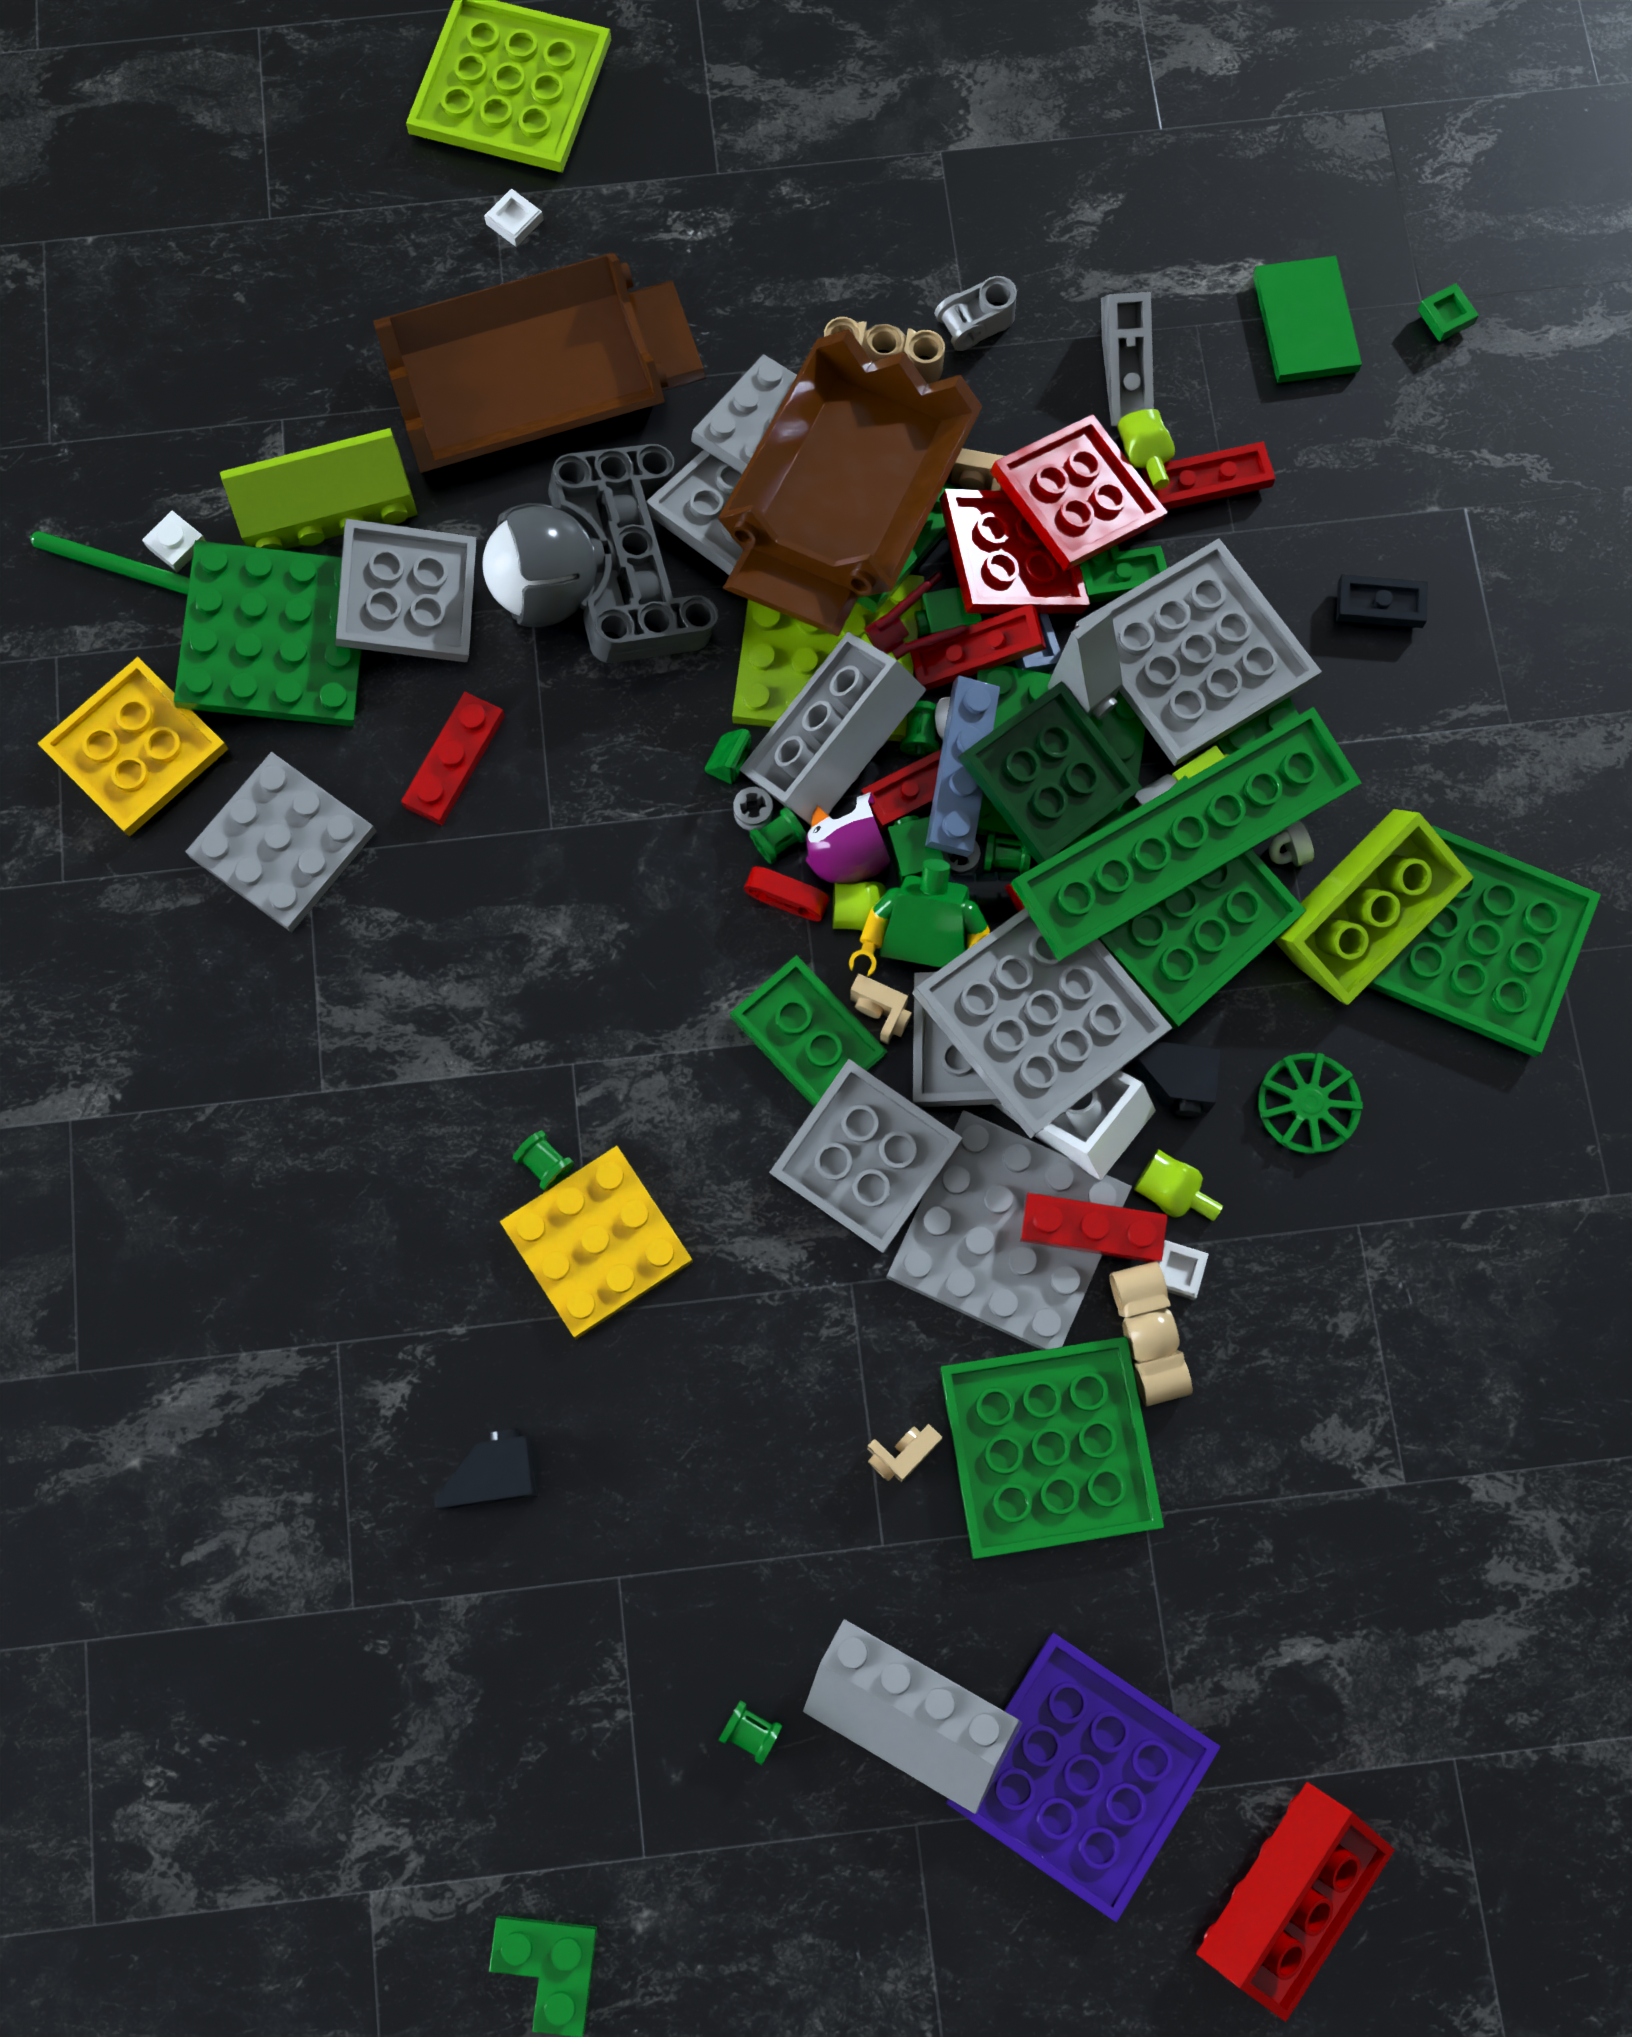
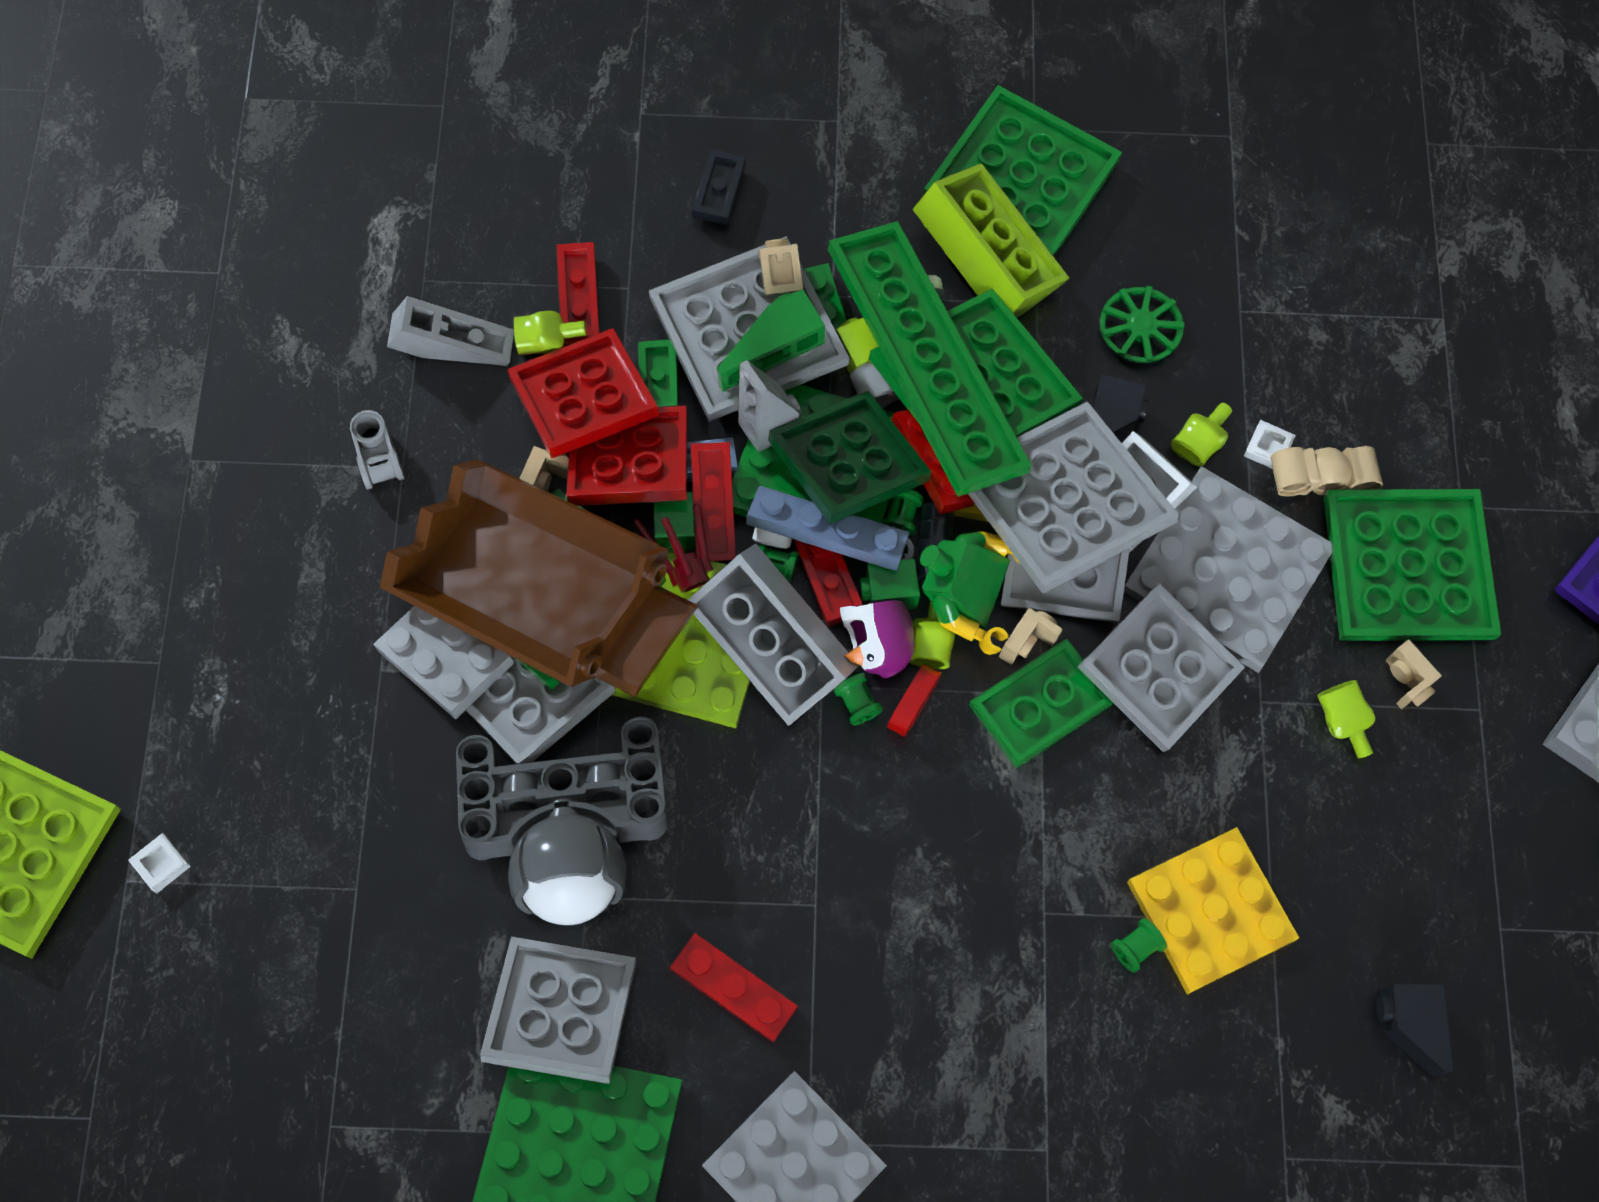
camera: 85 degrees left, 5 degrees down
(315, 490) = (442, 1084): lime slope -> none
(534, 358) = (330, 862): reddish brown panel -> none
(729, 755) = (772, 732): green slope -> none
(740, 804) = (835, 711): light grey bush -> none
(844, 1377) = (1348, 715): none -> lime piece
(894, 340) = (397, 520): tan piece -> none
(1093, 1228) = (1240, 497): red plate -> none
(1179, 669) = (778, 335): none -> green slope
(1271, 663) = (780, 267): none -> tan bracket
(1306, 319) = (441, 193): green tile -> none
(1448, 312) = (463, 85): green plate -> none

